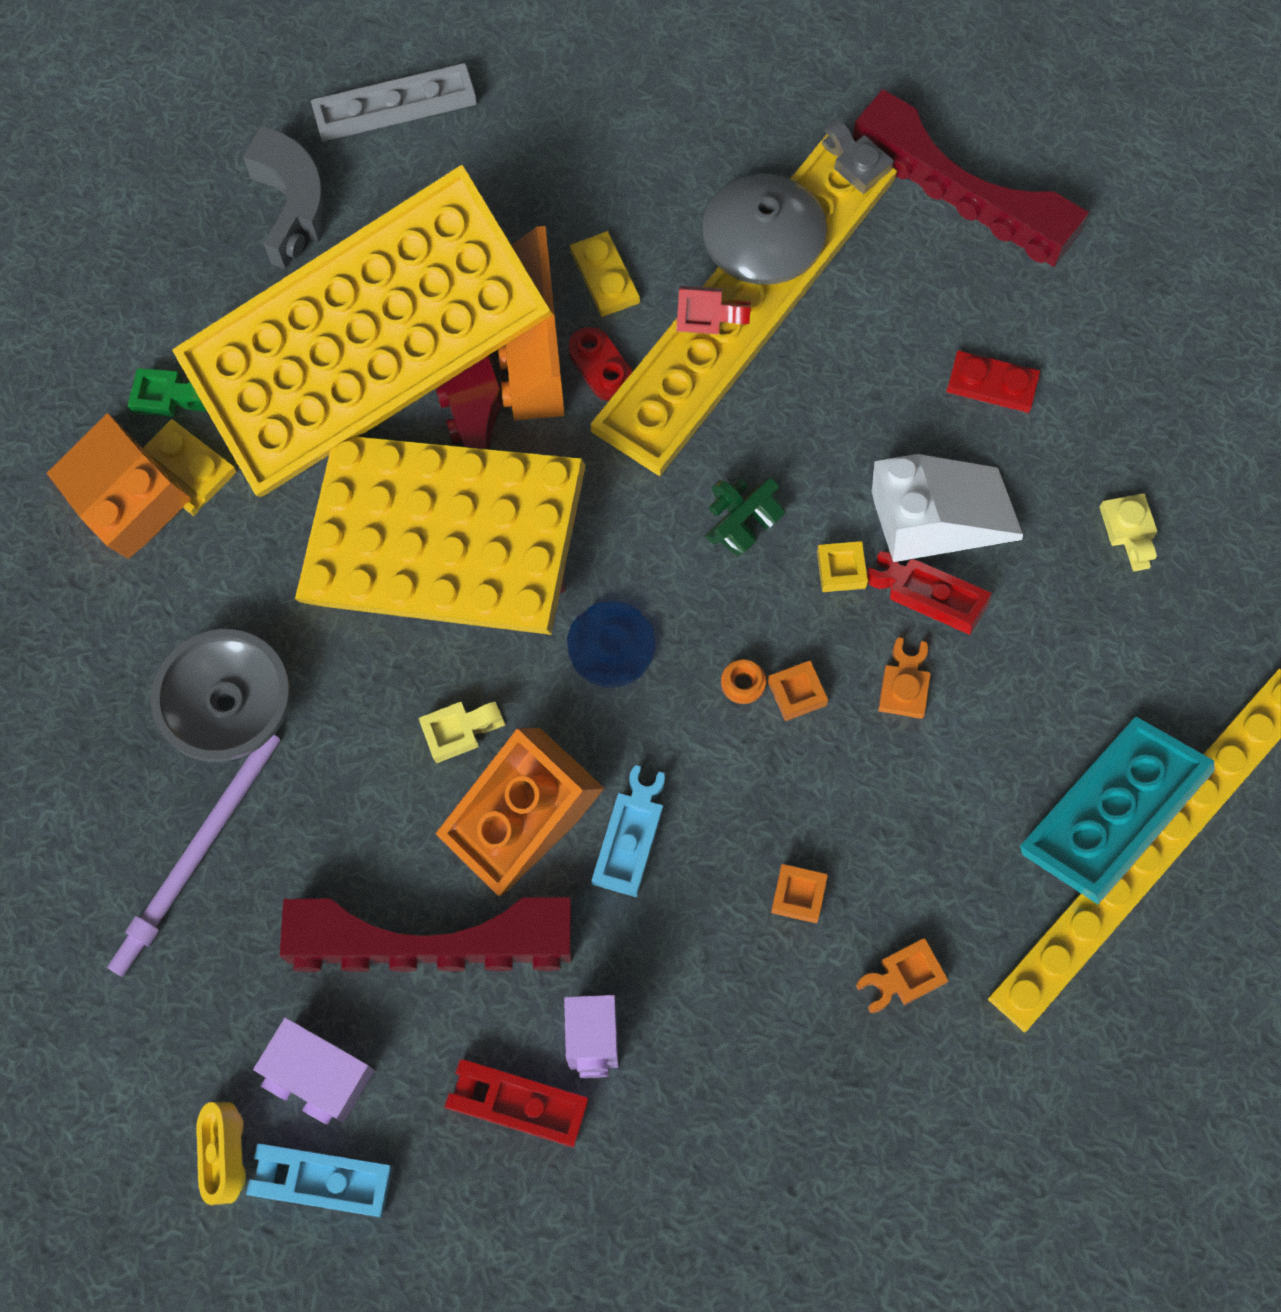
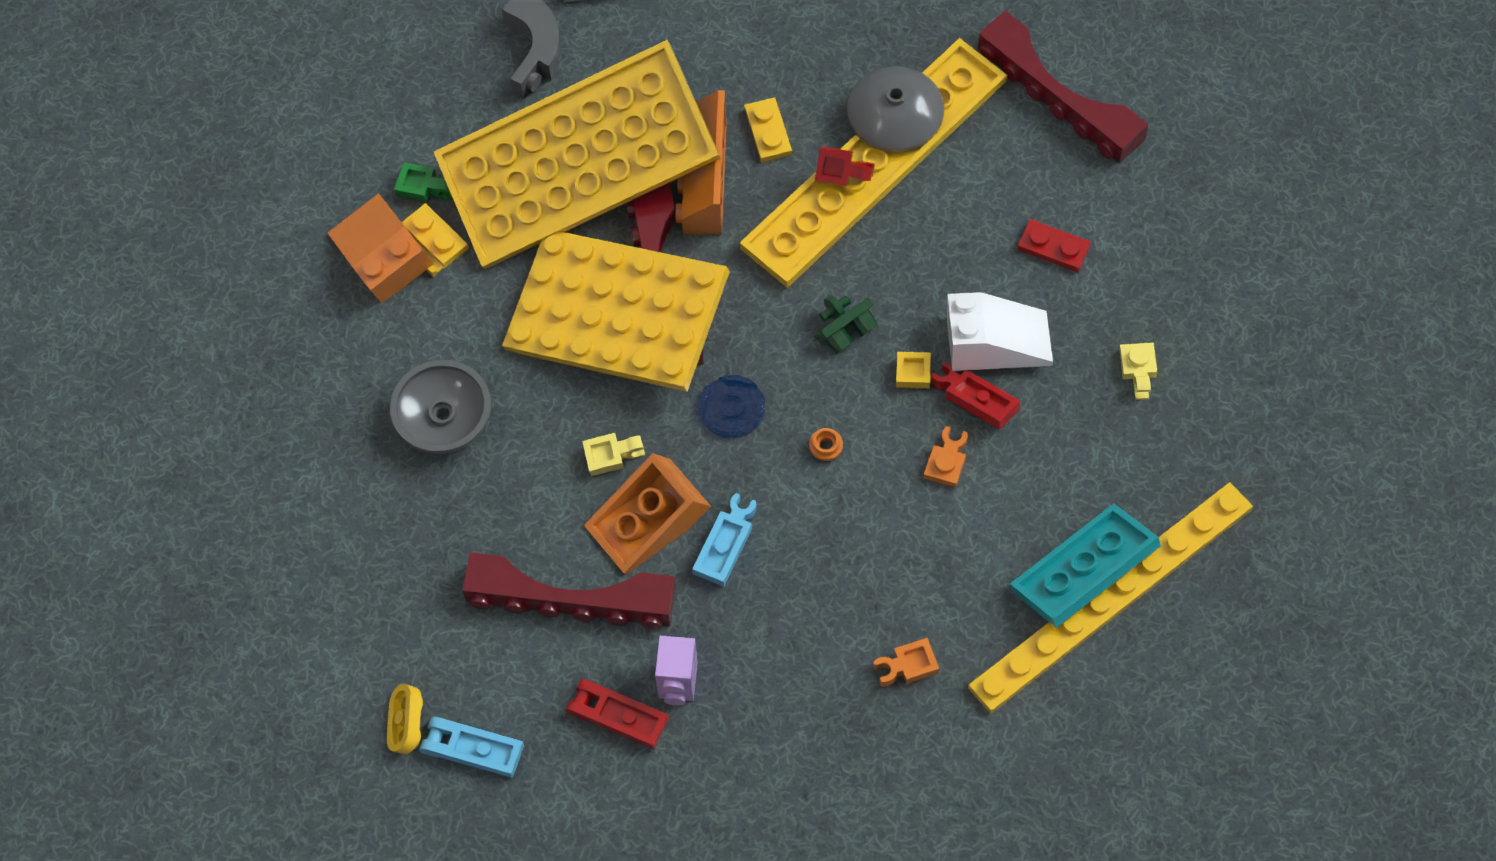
camera: 10 degrees right, 5 degrees down
(143, 929) = (366, 564): lavender bar -> none
(313, 1071) = (476, 673): lavender brick -> none
(598, 361) = (753, 196): red plate -> none
(797, 690) = (864, 455): orange plate -> none
(799, 893) = (842, 597): orange plate -> none
(857, 161) = (976, 65): flat silver plate -> none

